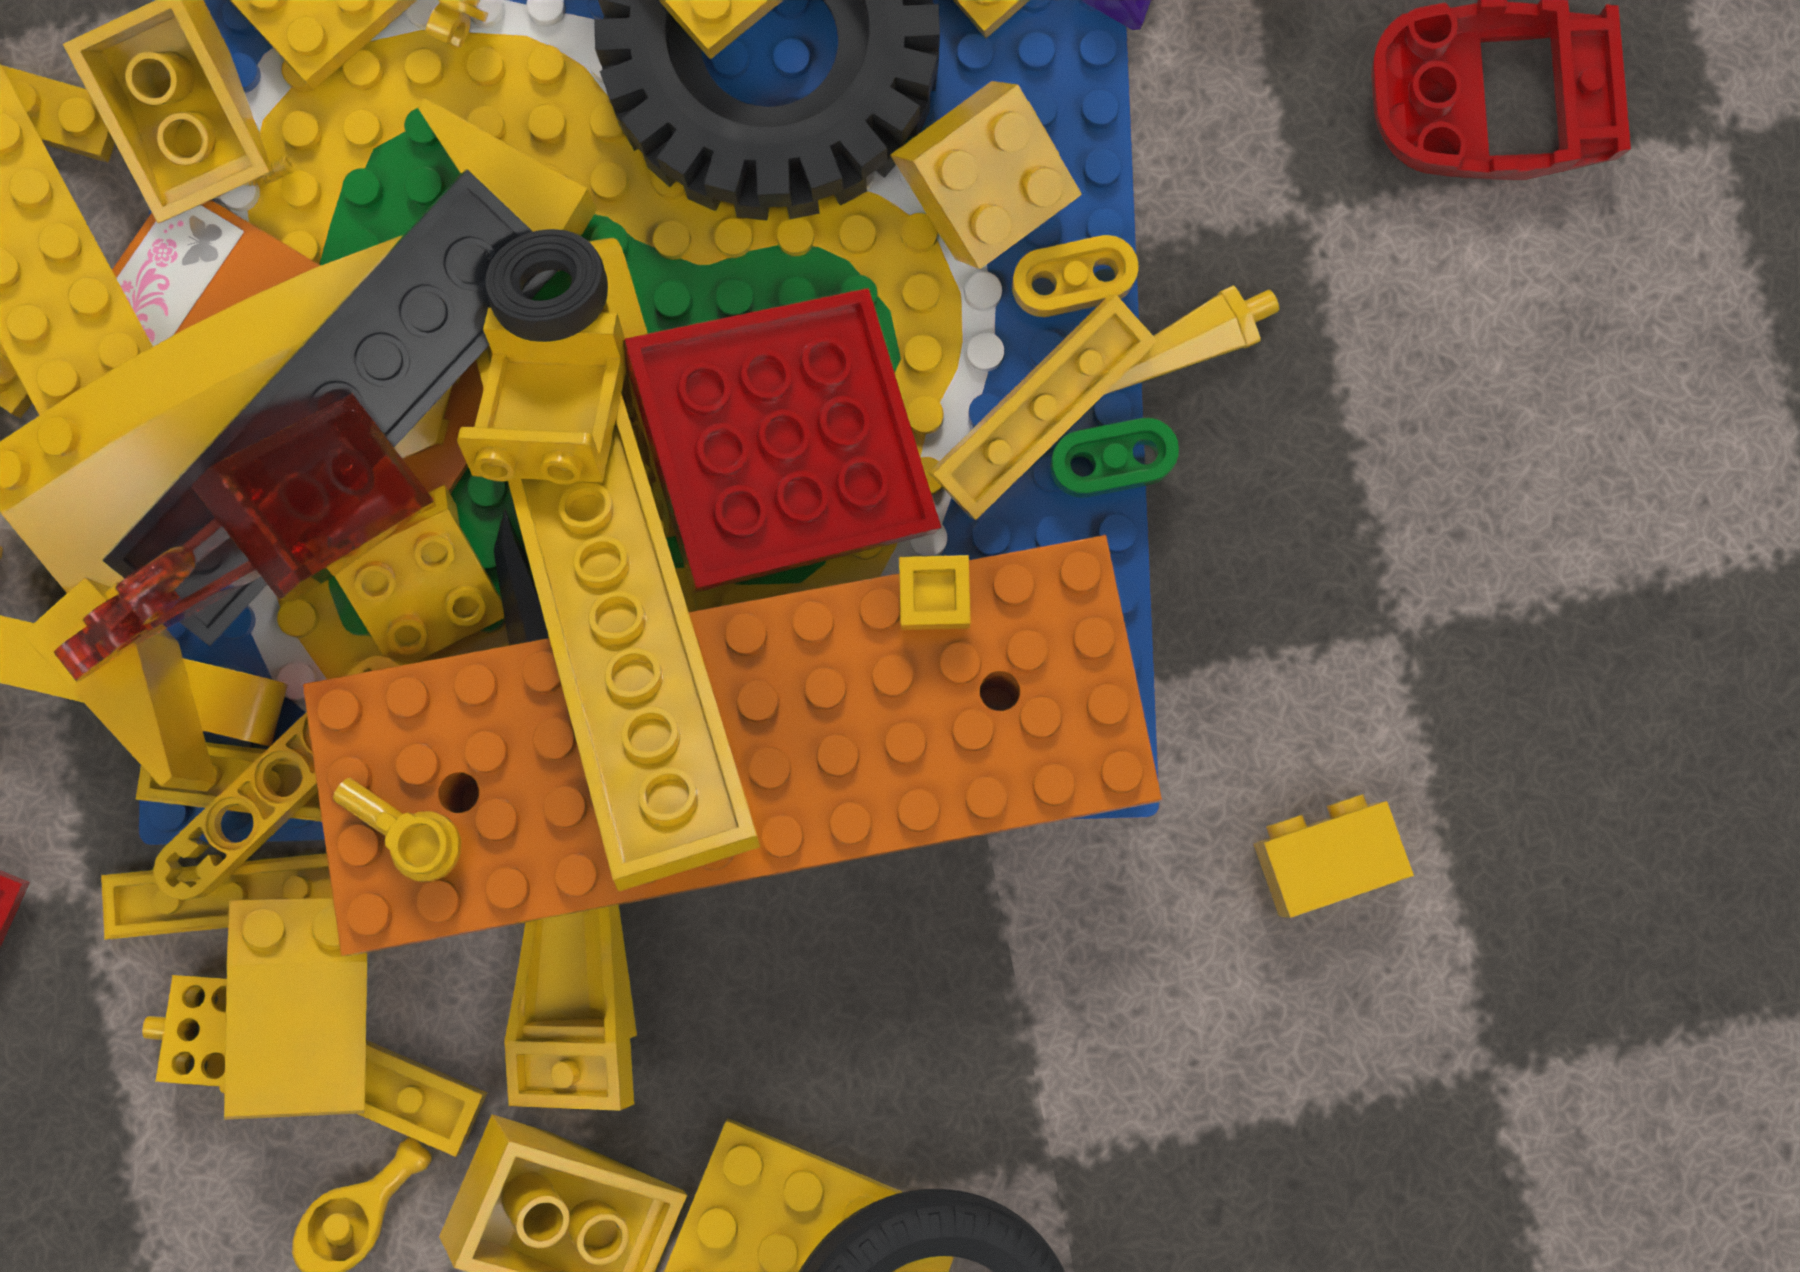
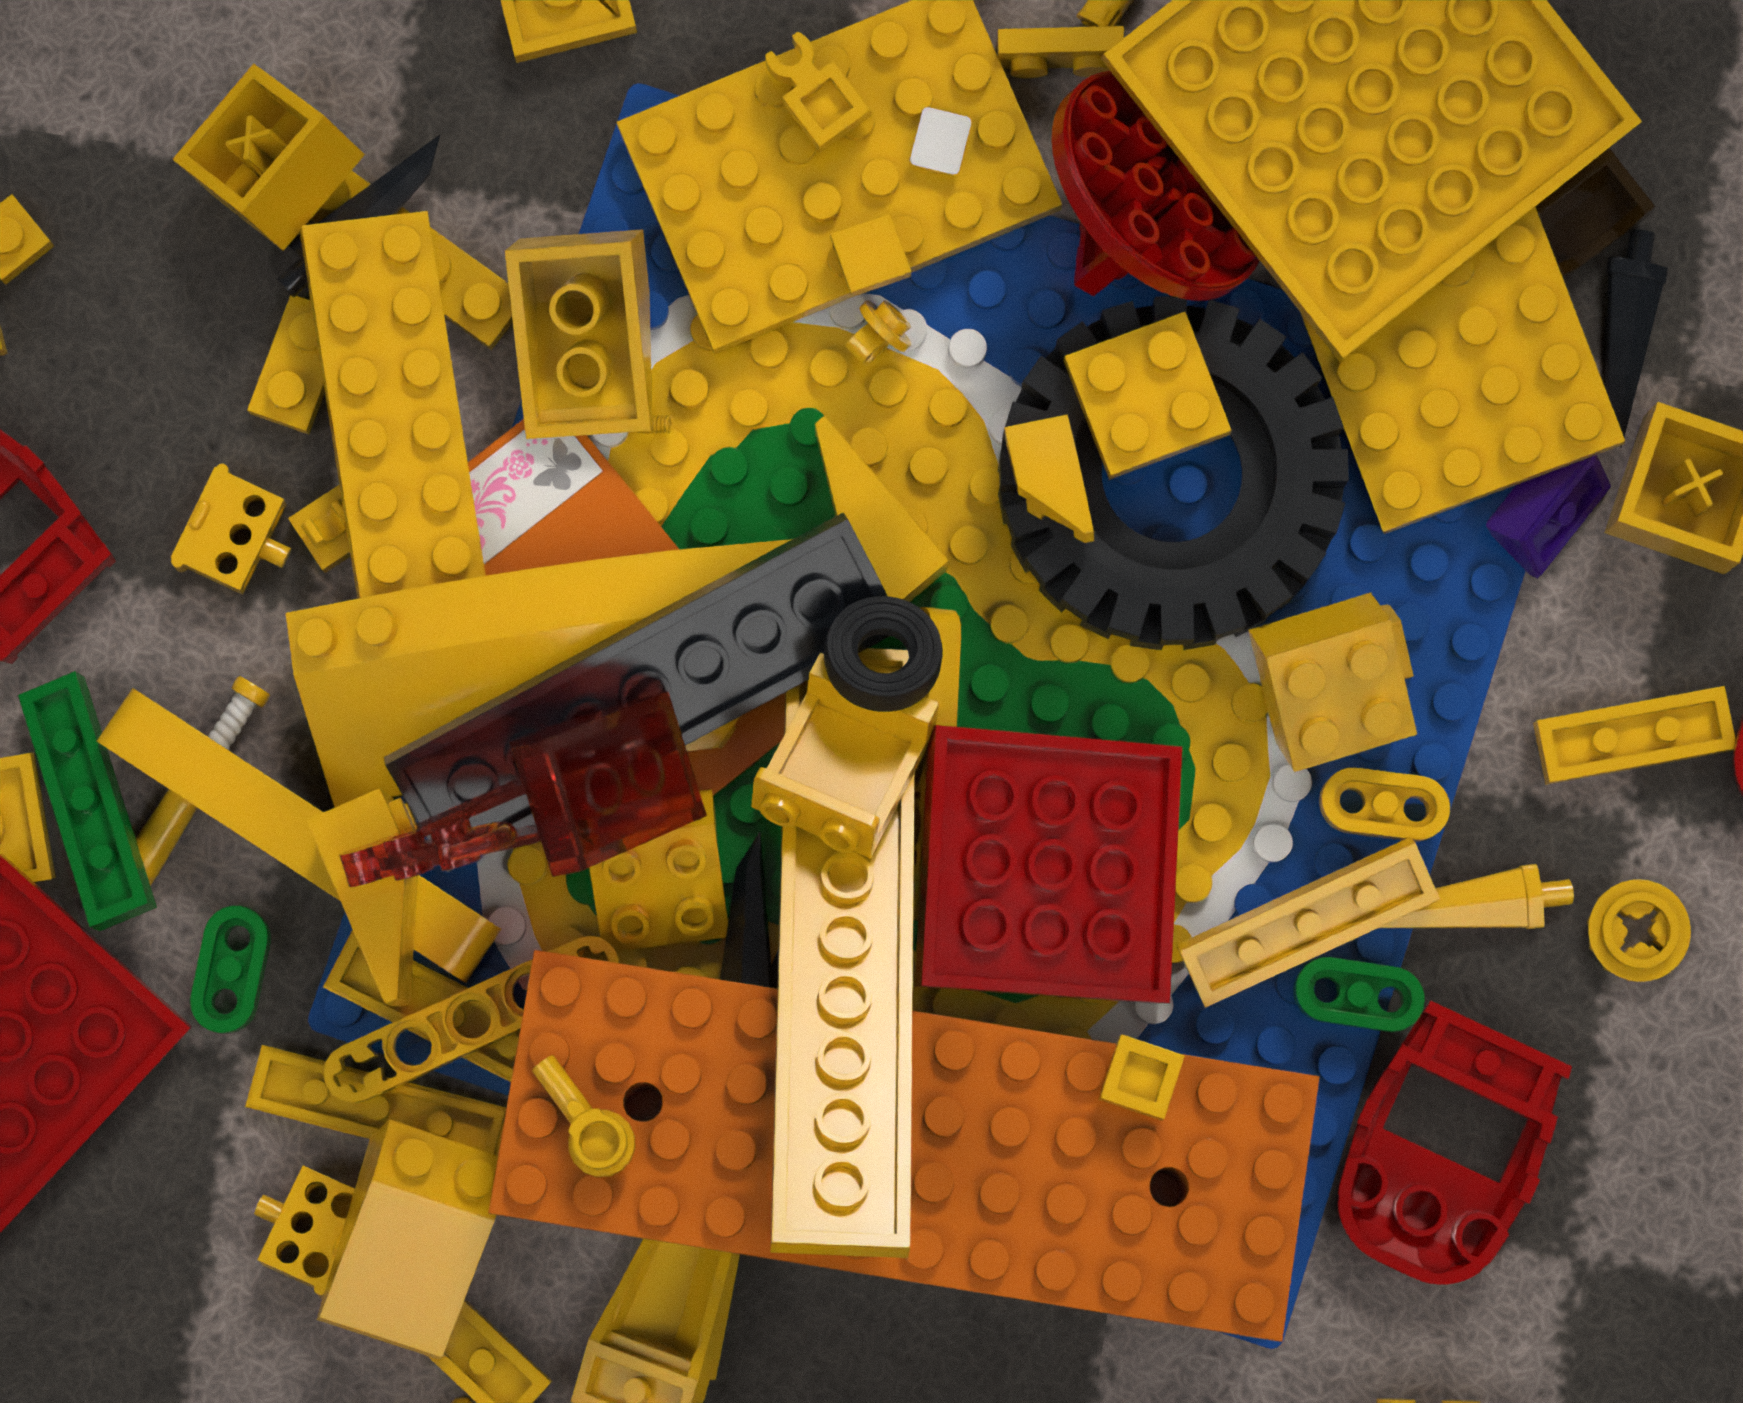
camera: 20 degrees right, 0 degrees up
(40, 817) = (225, 969): none -> green plate
(650, 68) = (1050, 473): none -> yellow slope
(1243, 635) = (1421, 1207): none -> red slope
(1279, 138) = (1634, 735): none -> yellow plate
(1373, 301) = (1668, 929): none -> yellow gear

